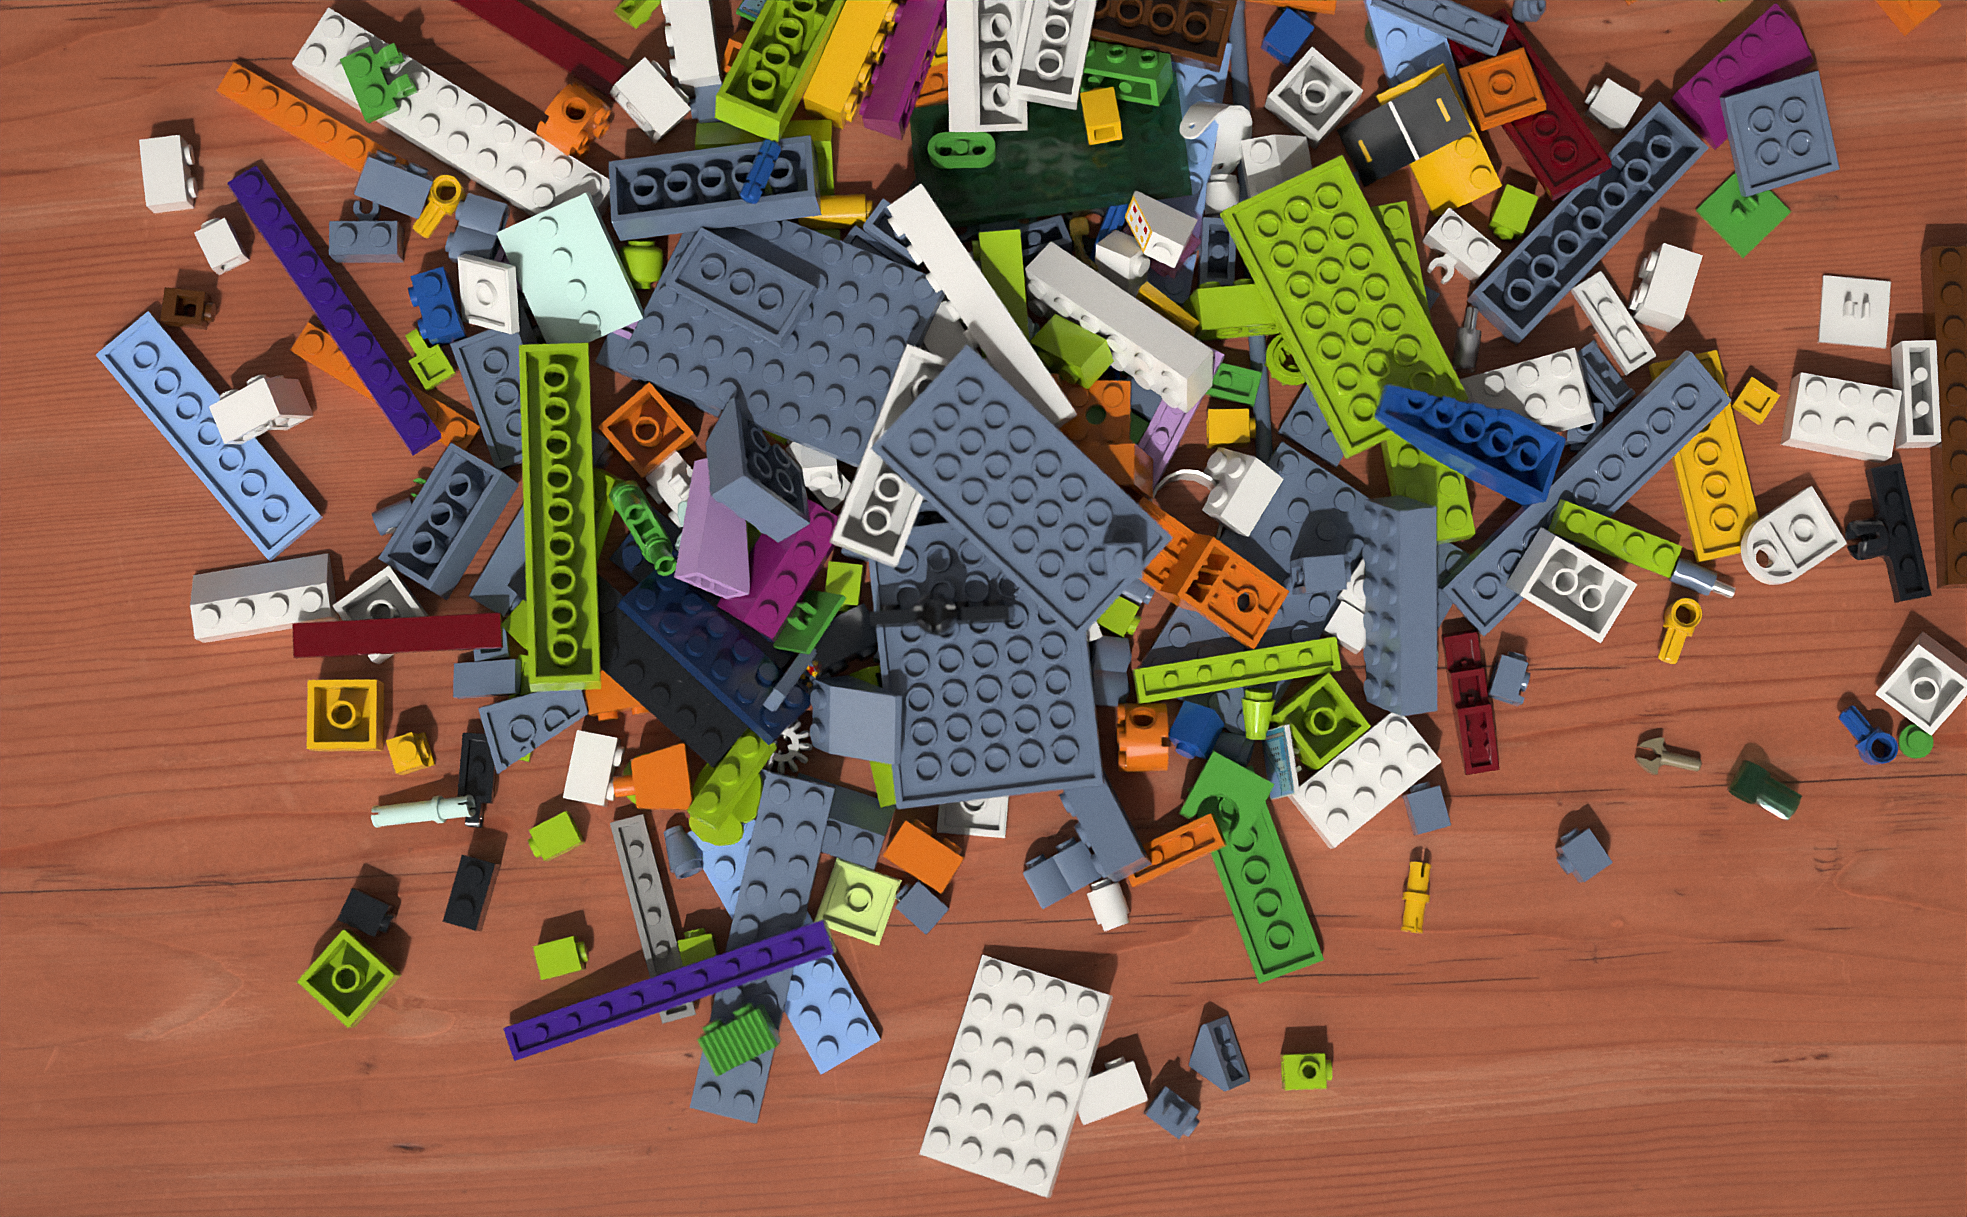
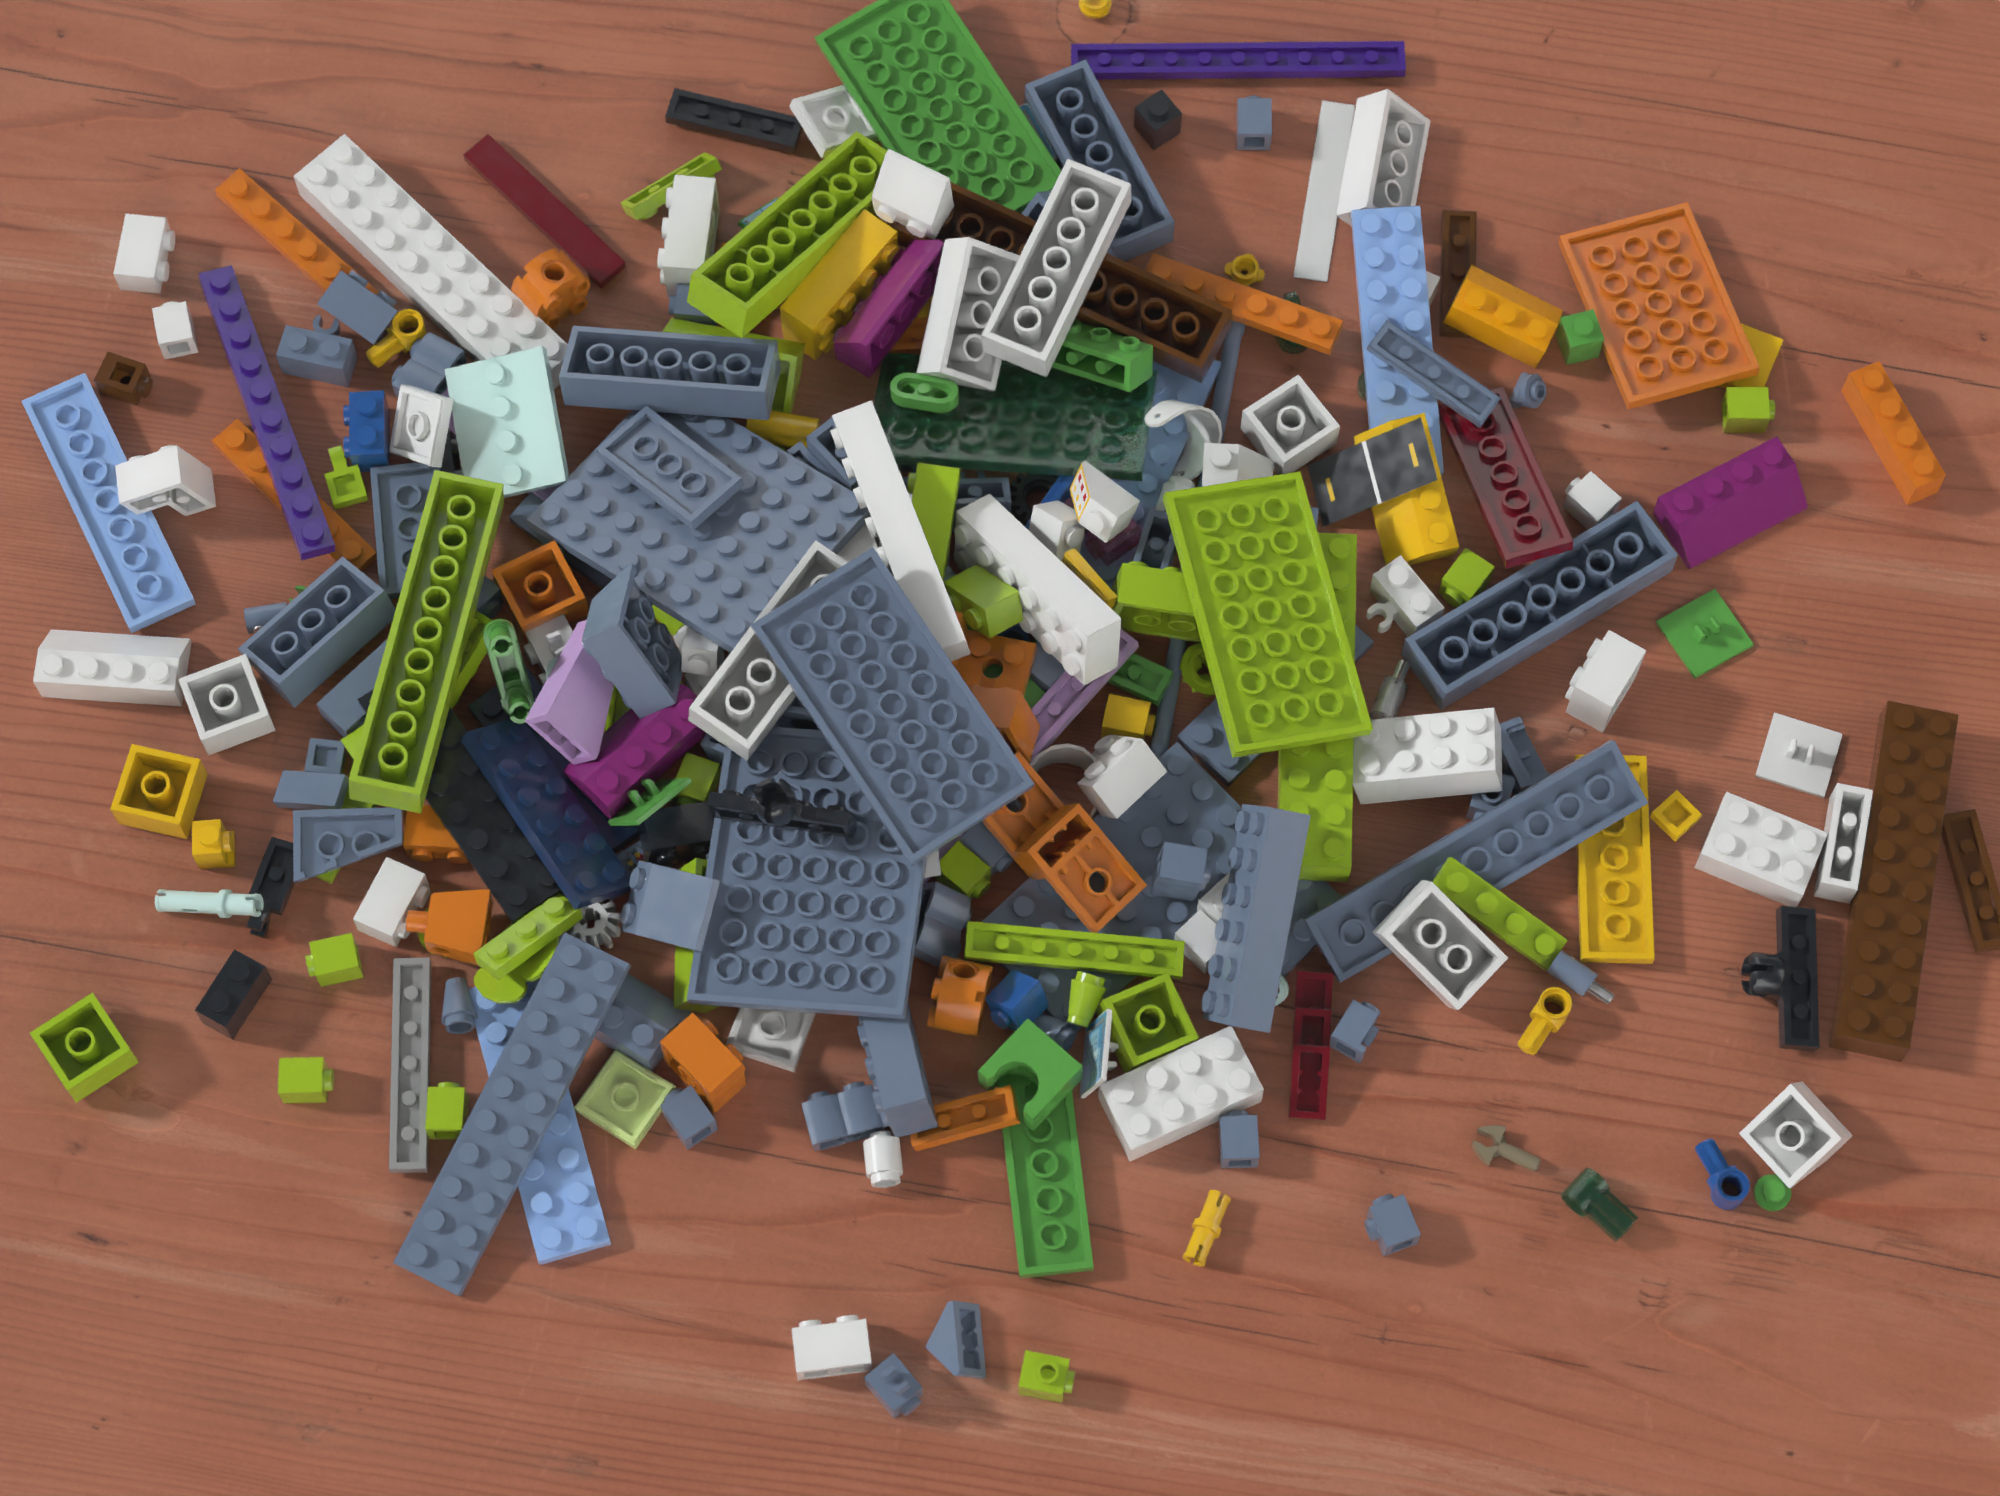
camera: 15 degrees right, 15 degrees down
(367, 913) = (122, 990): black brick -> none
(370, 84) = (362, 205): bright green plate -> none
(397, 635) = (234, 720): dark red tile -> none
(642, 262) = (580, 434): lime head -> none
(651, 99) = (631, 283): white brick -> none
(670, 989) = (405, 1130): dark purple plate -> none
(739, 1038) = (461, 1194): bright green brick -> none
(760, 171) = (717, 359): blue axle -> none
(789, 680) = (614, 848): sand blue tile -> none
(1016, 1076) = (740, 1307): white plate -> none
(1077, 228) = (1021, 493): clear yellow piece -> none
(1101, 115) = (1070, 389): yellow brick -> none
(1122, 561) = (975, 789): sand blue brick -> none
(1288, 36) = (1278, 365): blue brick -> none
(1476, 441) = (1372, 773): blue wedge -> none
(1502, 89) = (1480, 456): orange tile -> none
(1613, 323) = (1545, 708): white plate -> none
(1779, 133) = (1755, 562): sand blue plate -> none
(1793, 537) = (1685, 957): white plate -> none

